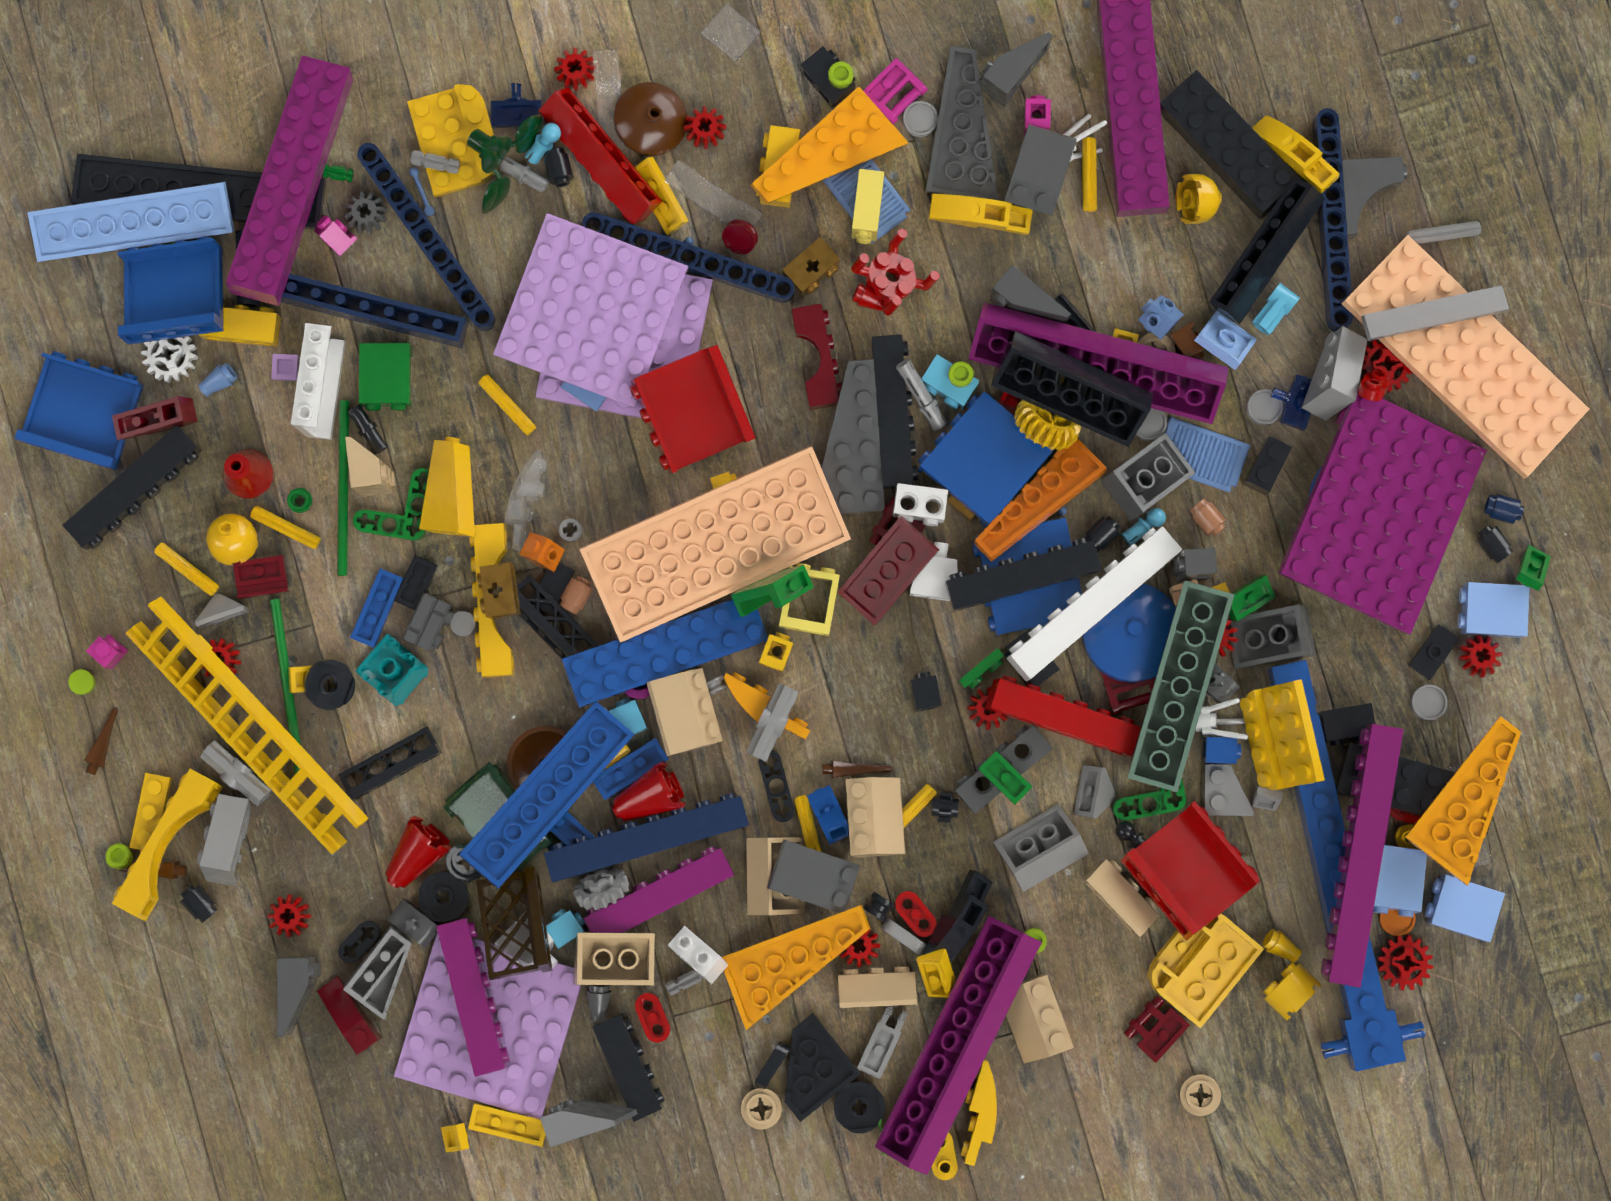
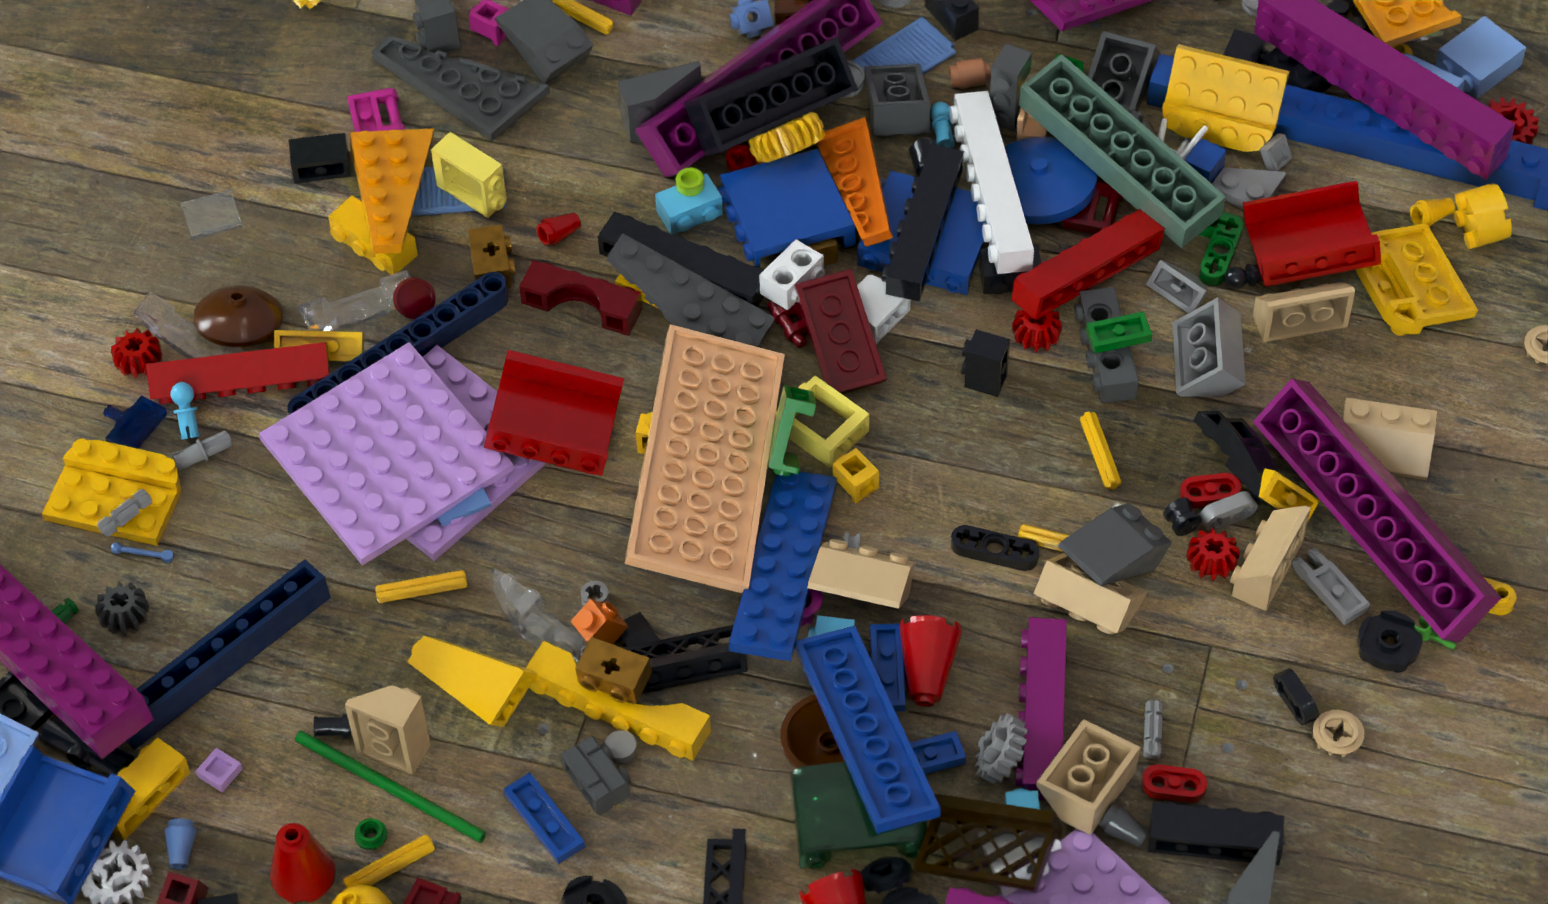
camera: 60 degrees left, 30 degrees down
(318, 382) = (260, 719): white panel -> none
(334, 234) = (121, 644): brick -> none
(385, 375) = (304, 675): green panel -> none
(392, 670) = (621, 838): teal slope -> none
(402, 522) = (468, 745): green beam -> none
(416, 582) = (544, 765): black plate -> none
(420, 227) = (177, 563): dark blue beam -> none
(492, 152) = (148, 448): dark green plant -> none
(558, 167) = (219, 416): black brick -> none
(576, 594) = (666, 619): nougat brick -> none
(645, 839) = (973, 684): dark blue brick -> none
(698, 955) = (1132, 696): white brick -> none
(715, 127) = (284, 276): red gear -> none
(756, 699) = (898, 520): light orange slope -> none
(772, 722) = (927, 498): light grey piece -> none
(777, 967) = (1191, 630): light orange wing -> none
(815, 1068) = (1324, 658): black plate -> none
(829, 814) = (1056, 512): blue brick -> none
(841, 74) = (328, 136): lime tile -> none
(841, 768) = (1015, 480): reddish brown piece -> none
(875, 817) = (1083, 472): tan slope -> none
(900, 267) = (550, 194): plate -> none
(920, 119) = (419, 111): light grey piece -> none
(925, 401) = (716, 232): light grey pin -> none
(945, 807) = (1114, 409): black gear -> none
(974, 677) = (991, 306): green plate -> none
(980, 213) = (542, 102): yellow slope -> none
(983, 1102) = (1470, 535): yellow slope -> none
(1162, 1034) = (1466, 347): dark red plate -> none

